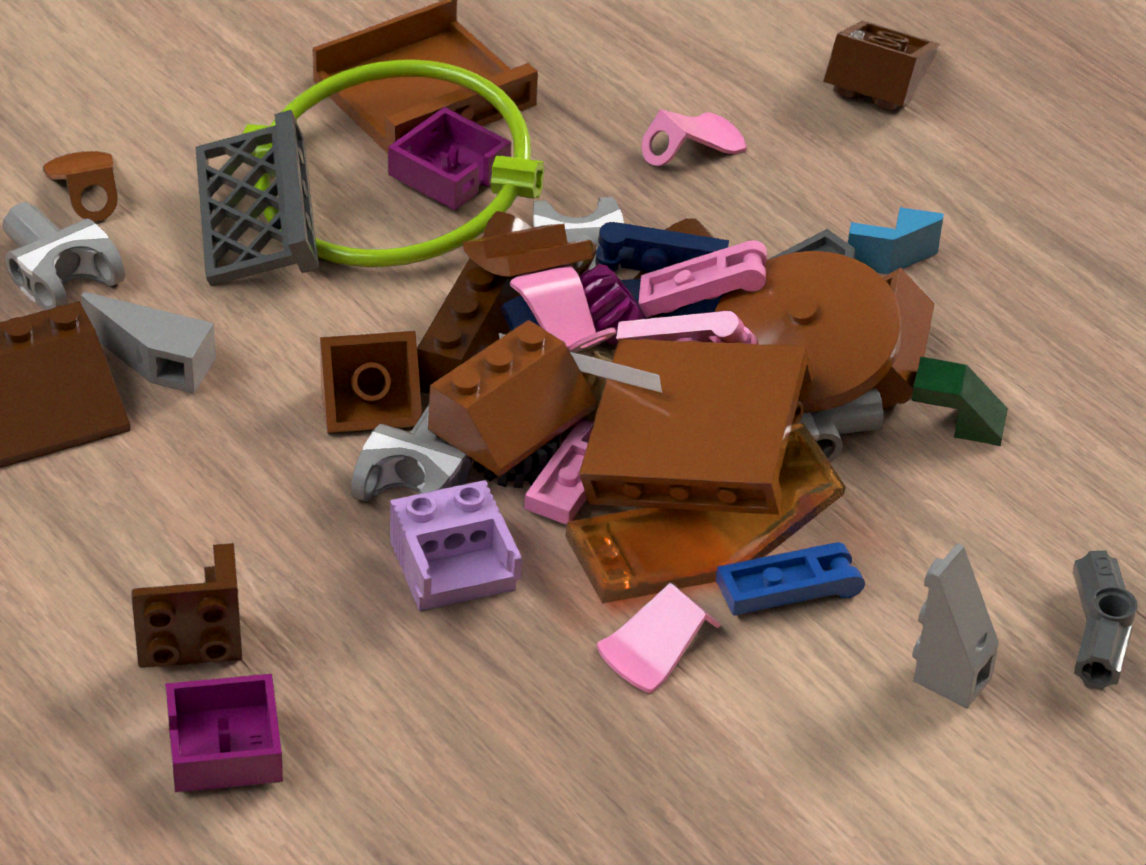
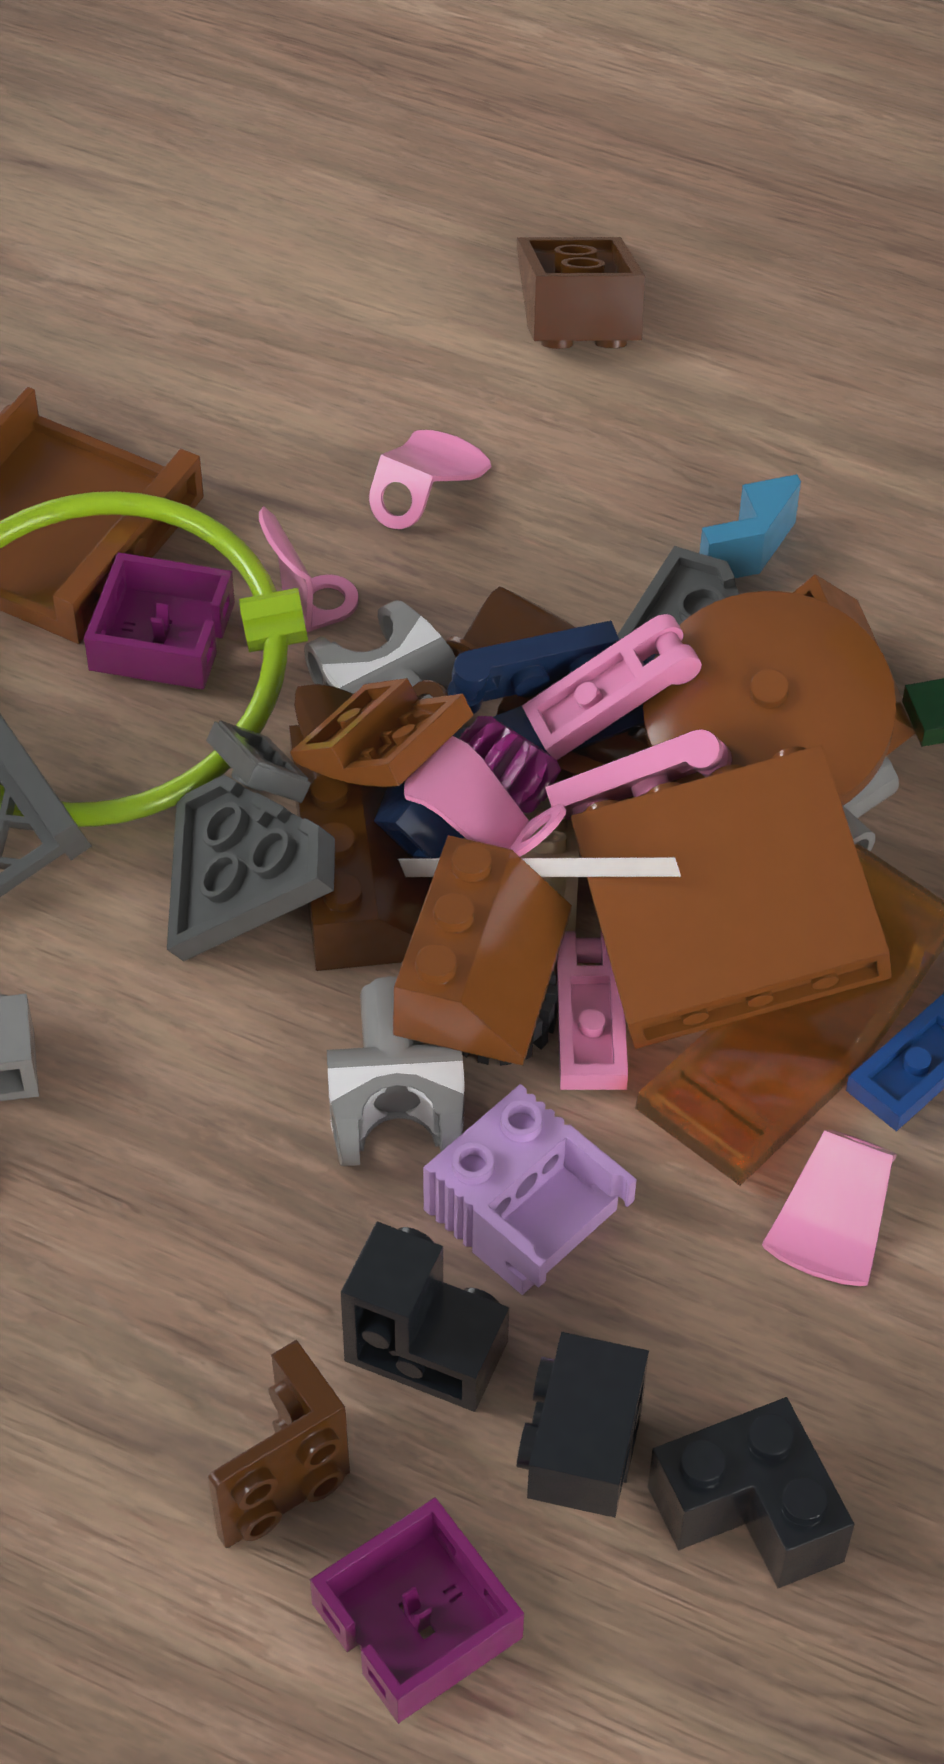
camera: 25 degrees left, 10 degrees up
(327, 585) = (414, 1325): none -> black brick
(370, 381) = (270, 994): dark orange slope -> none
(392, 670) = (584, 1424): none -> black brick
(403, 298) = (240, 865): none -> dark grey plate
(445, 247) = (258, 761): none -> dark grey plate
(481, 750) = (759, 1475): none -> black brick
(546, 136) = (295, 575): none -> bright pink piece

